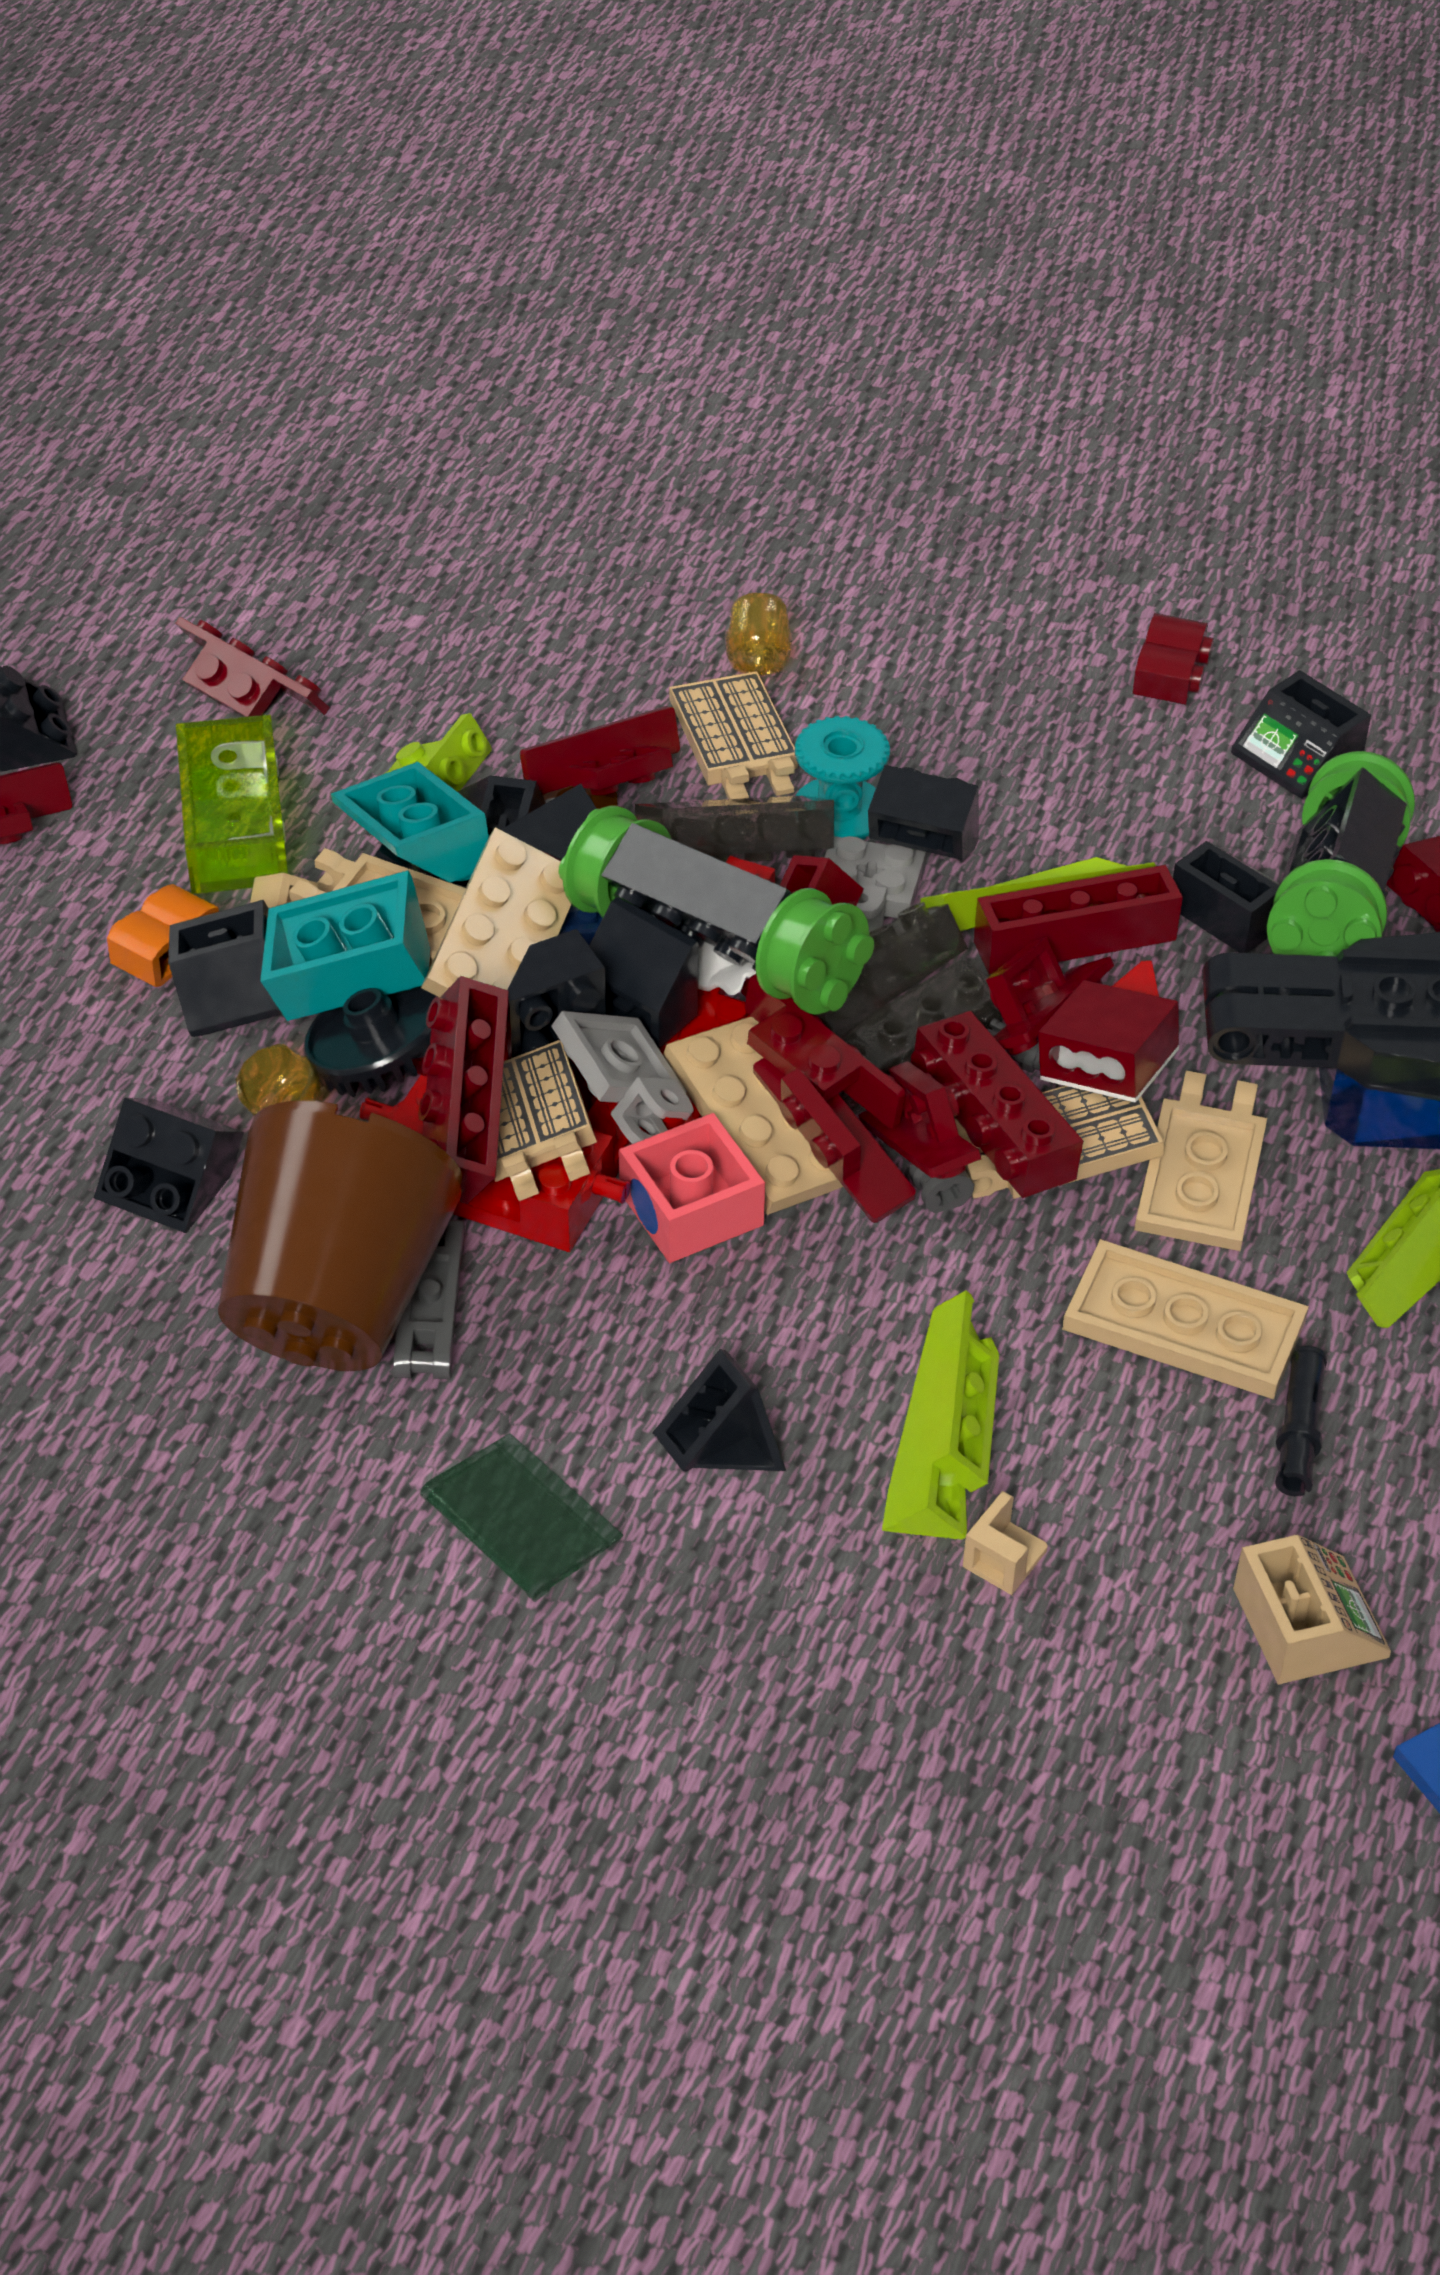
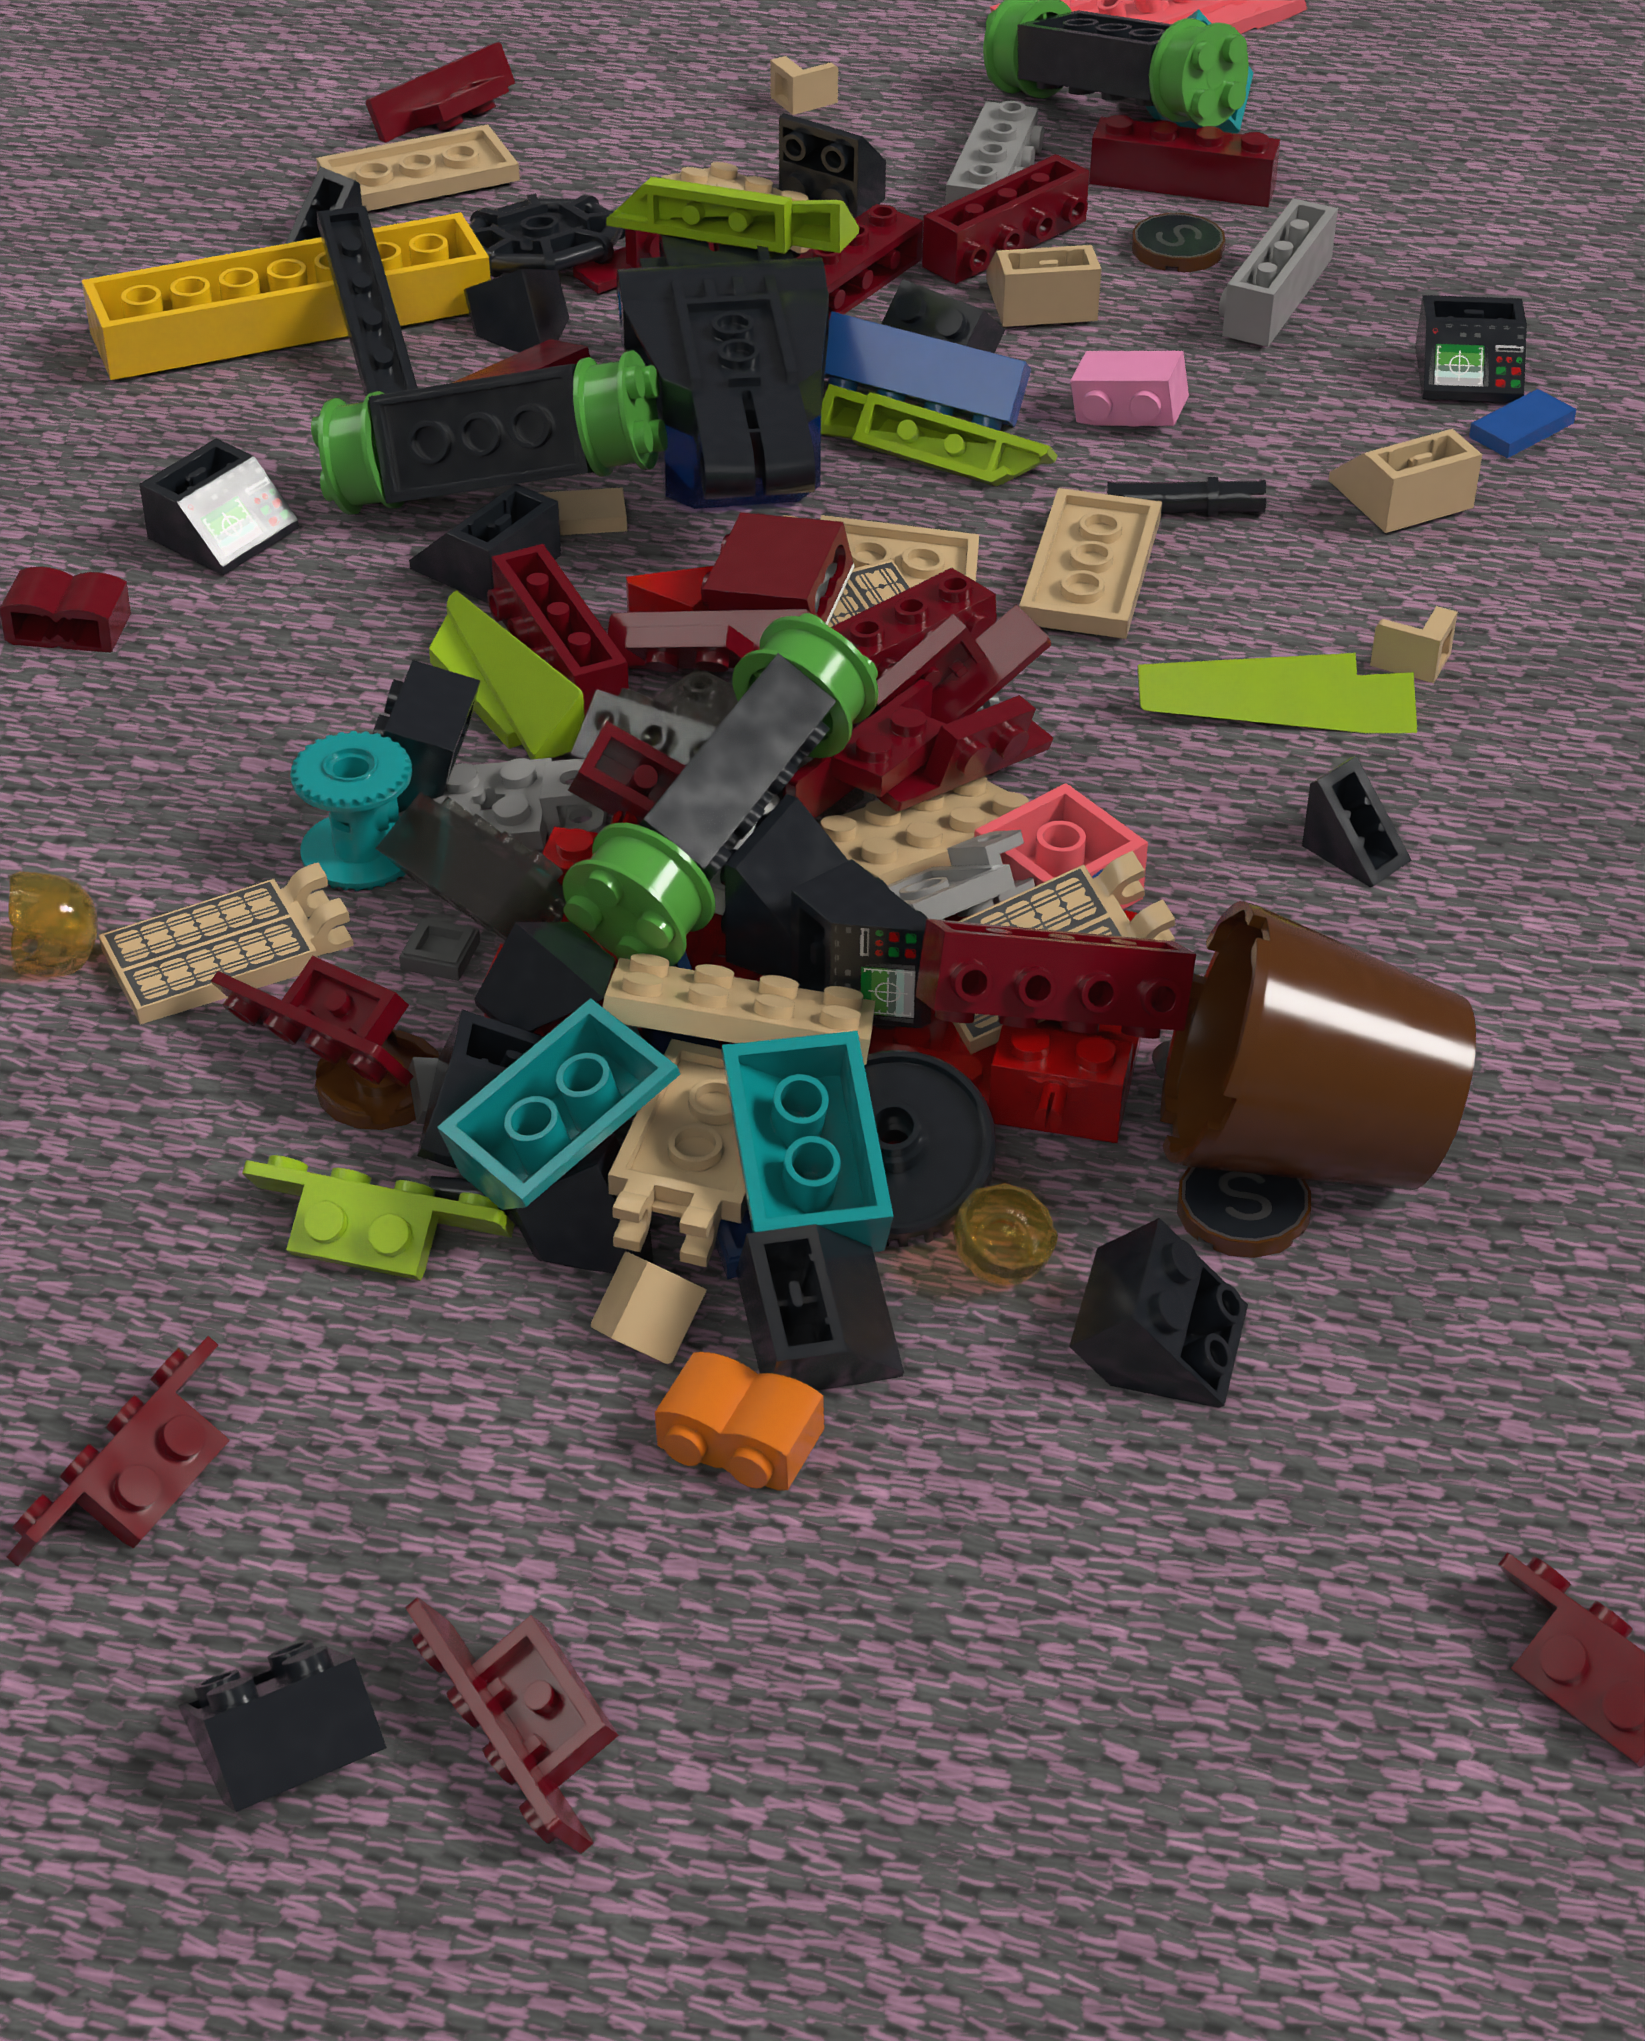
camera: 100 degrees left, 5 degrees down
(226, 776) = (469, 1383): clear neon green piece -> none
(521, 1515) = (1526, 960): clear green piece -> none

